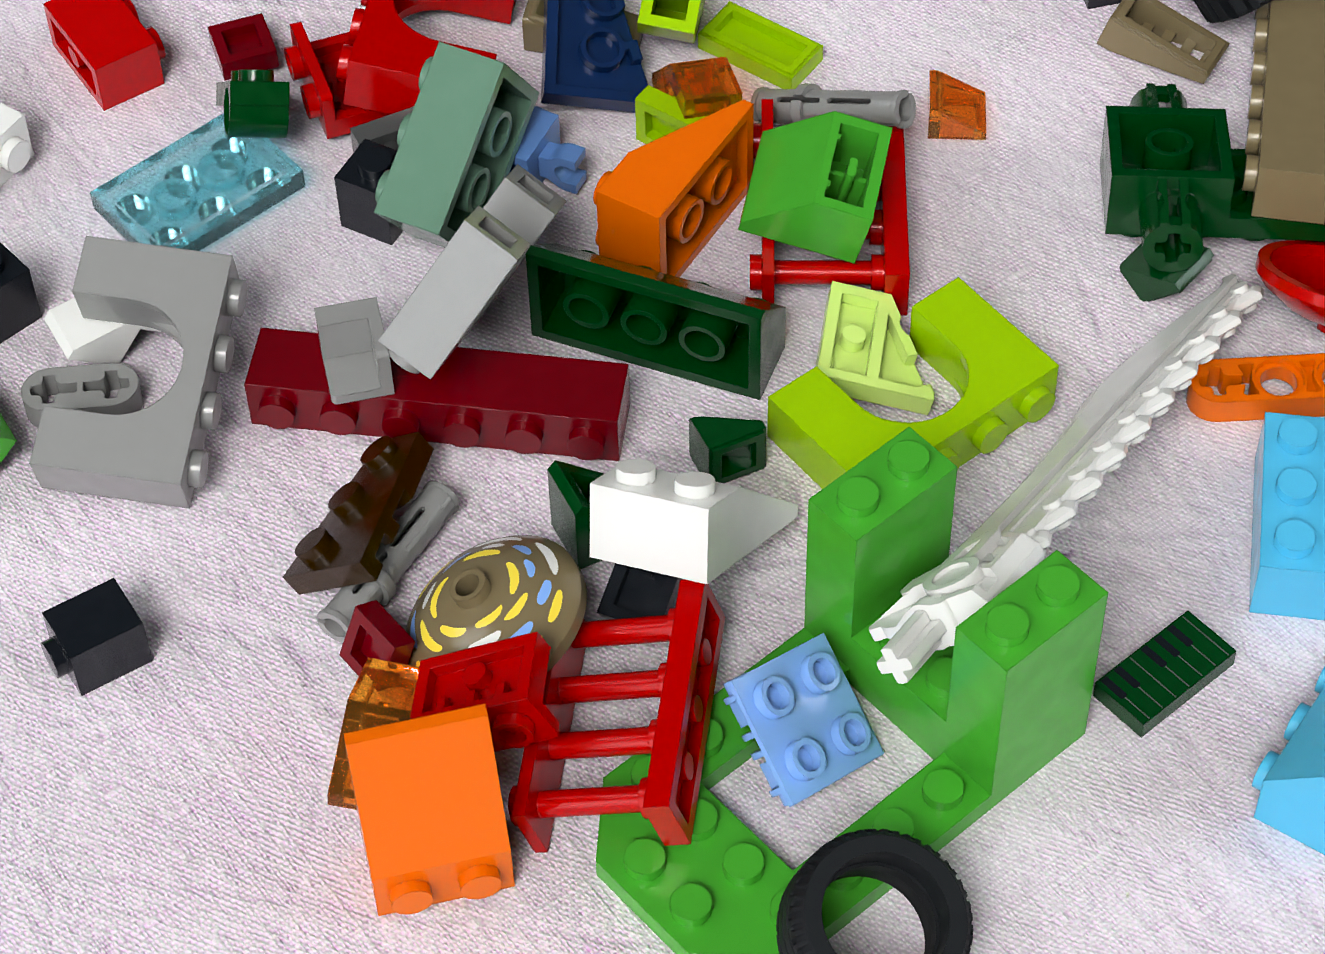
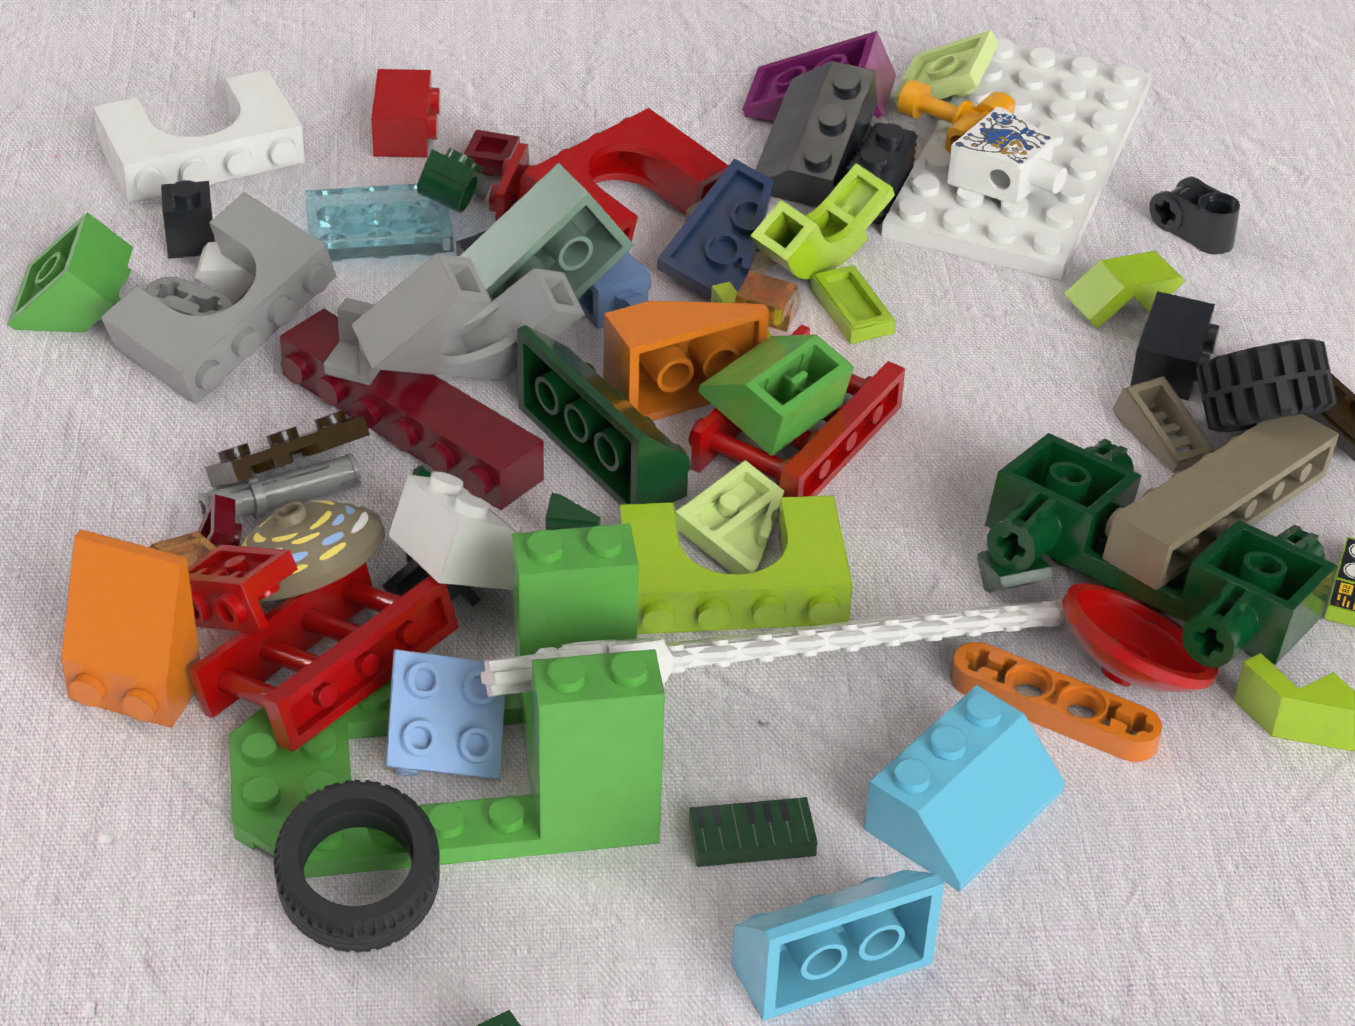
camera: 30 degrees right, 10 degrees down
(95, 637) = (51, 441): black brick -> none
(809, 100) = (862, 355): light grey pin -> none
(955, 109) = (954, 400): clear orange slope -> none

